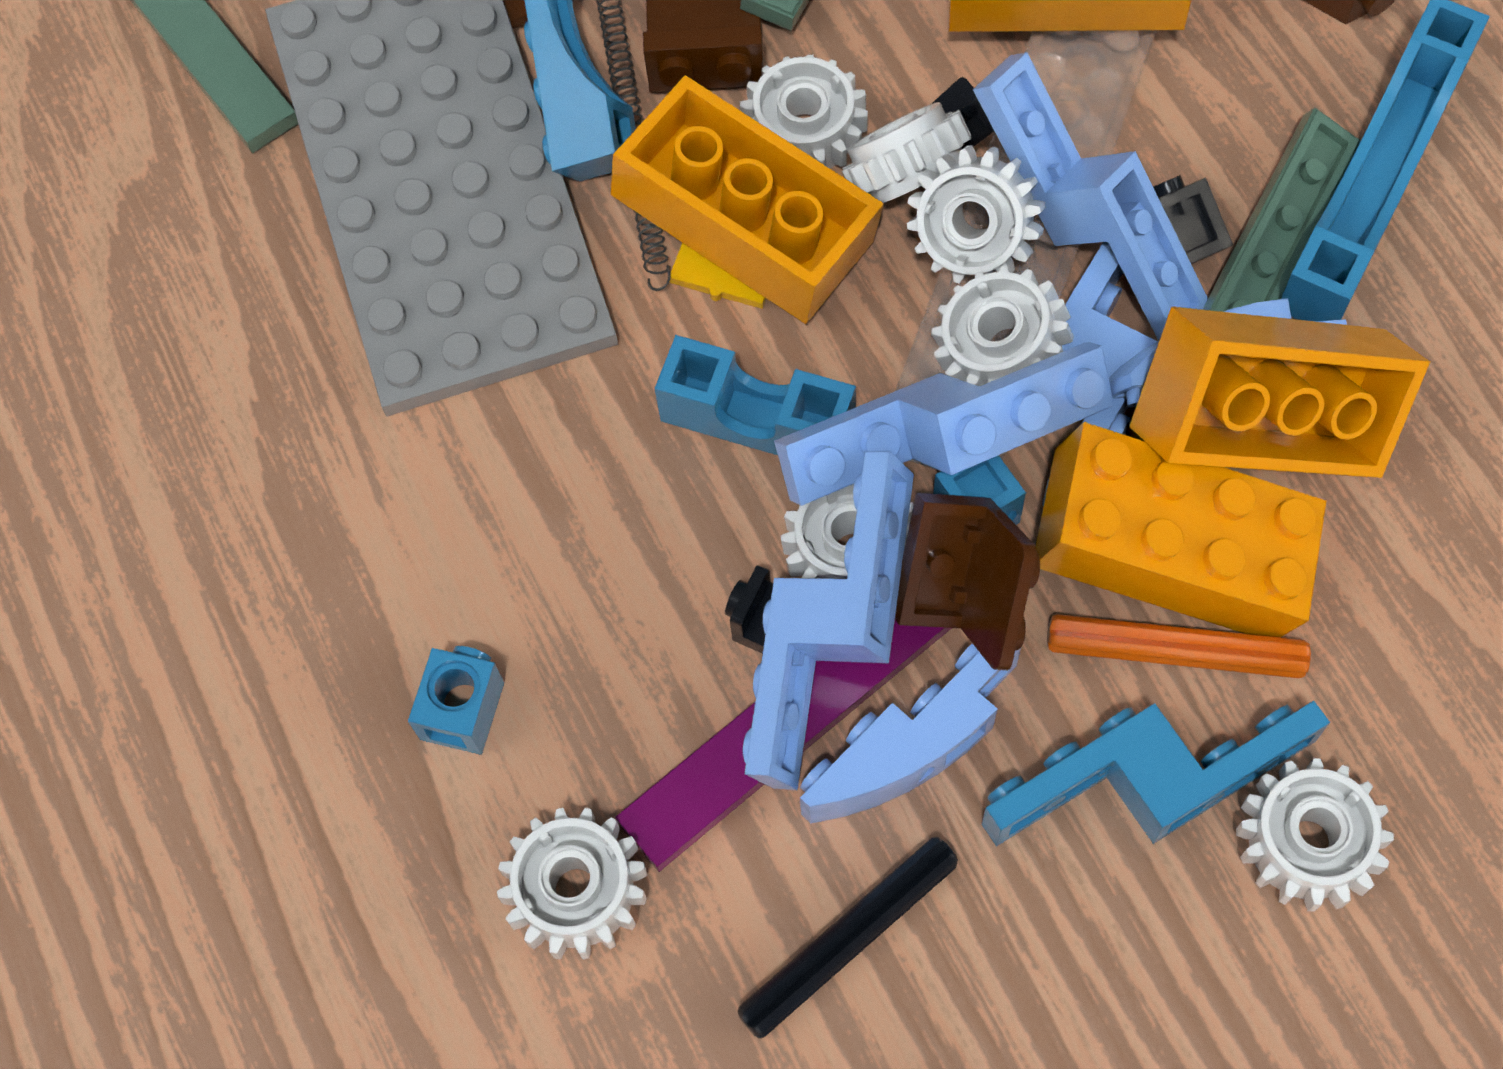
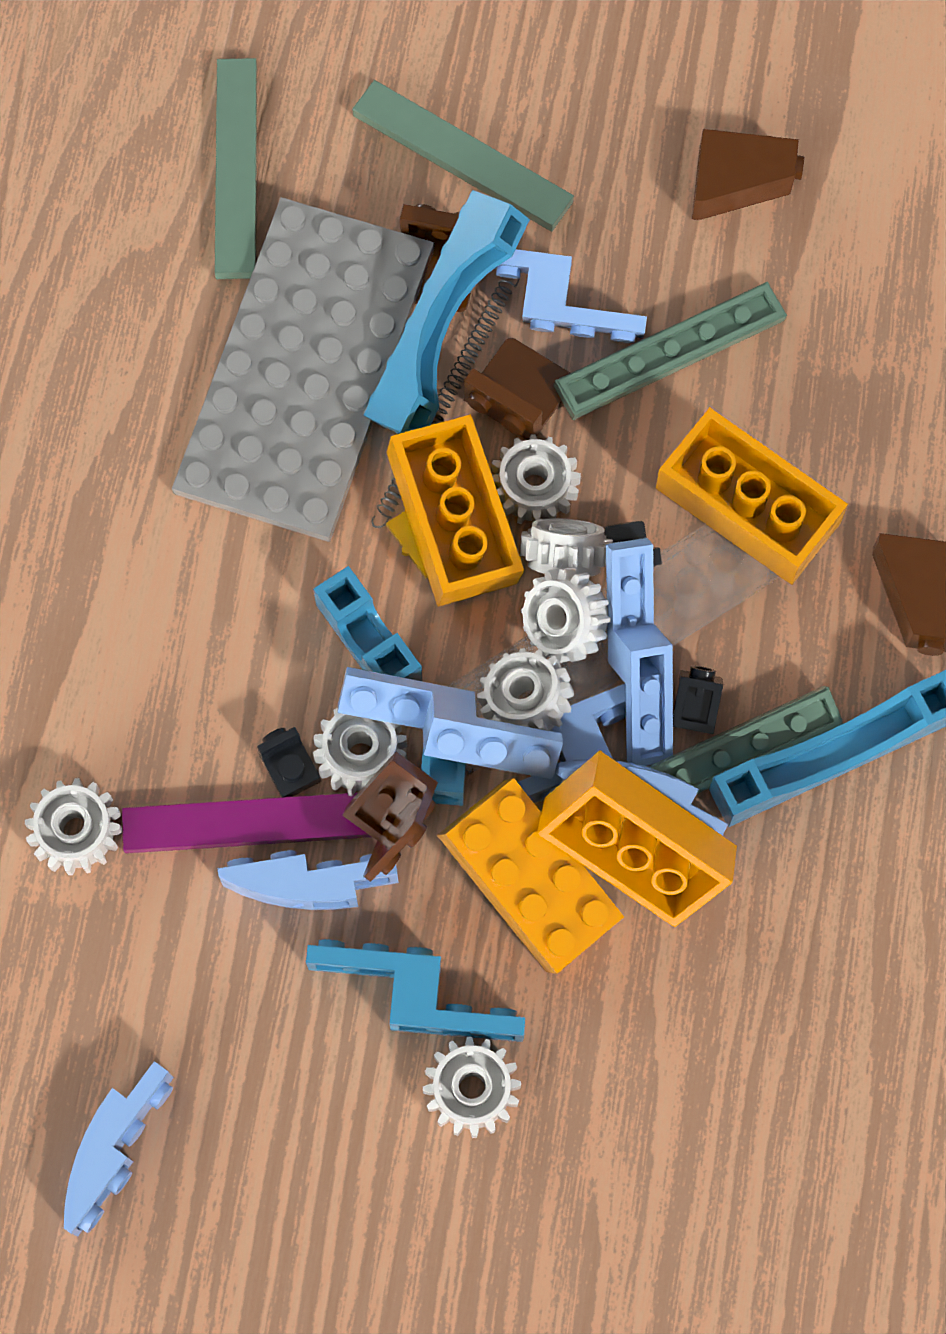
camera: 30 degrees right, 5 degrees up
(464, 725) = (84, 702): dark azure brick -> none
(829, 621) = (298, 781): light blue bracket -> none
(847, 937) = (192, 958): black axle -> none
(1179, 646) = (490, 936): orange axle -> none

